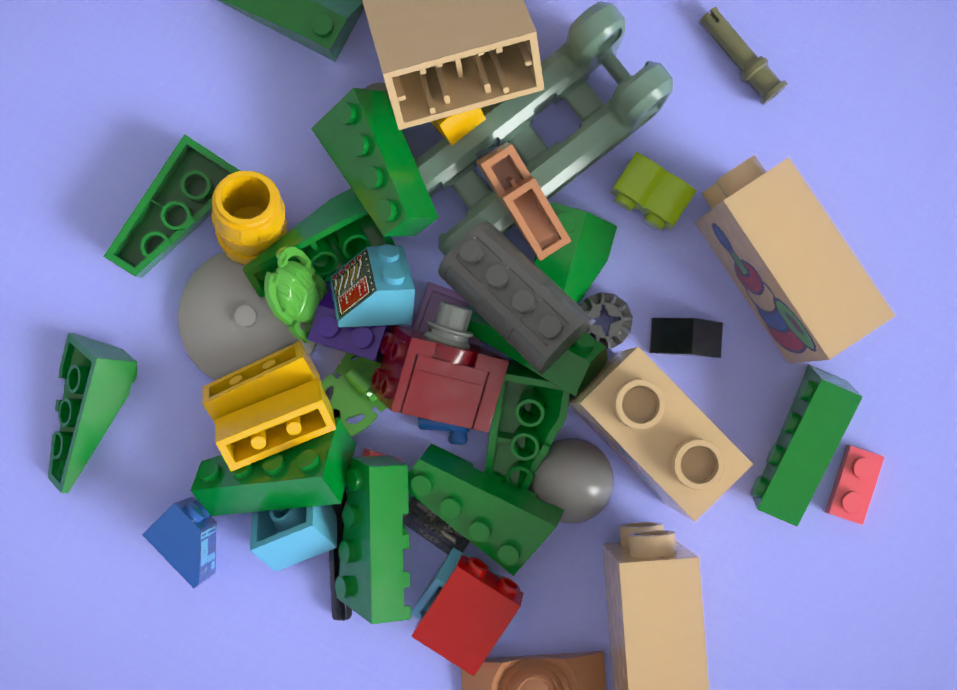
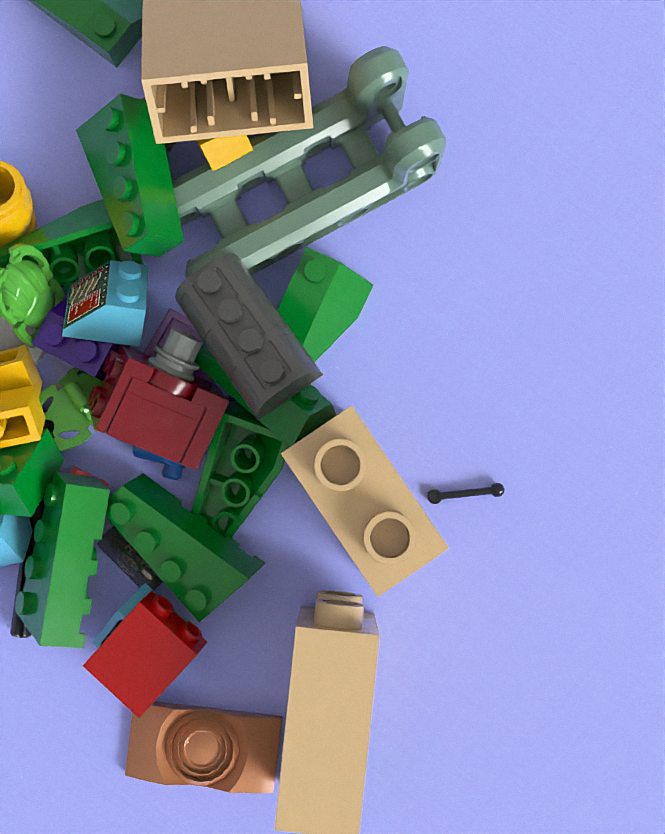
camera: 20 degrees right, 0 degrees up
(523, 200) = (275, 239): nougat slope -> none
(575, 479) = (283, 536): light grey piece -> none
(614, 307) = (356, 367): dark grey gear -> none
(653, 192) = (414, 255): lime brick -> none
(686, 337) = (424, 410): black slope -> none
(752, 68) = (540, 145): olive pin -> none
(768, 401) = (435, 496): none -> black hinge
(790, 261) = (536, 346): tan brick -> none
(805, 445) = (524, 542): green wedge -> none
(854, 484) = (570, 591): coral plate -> none

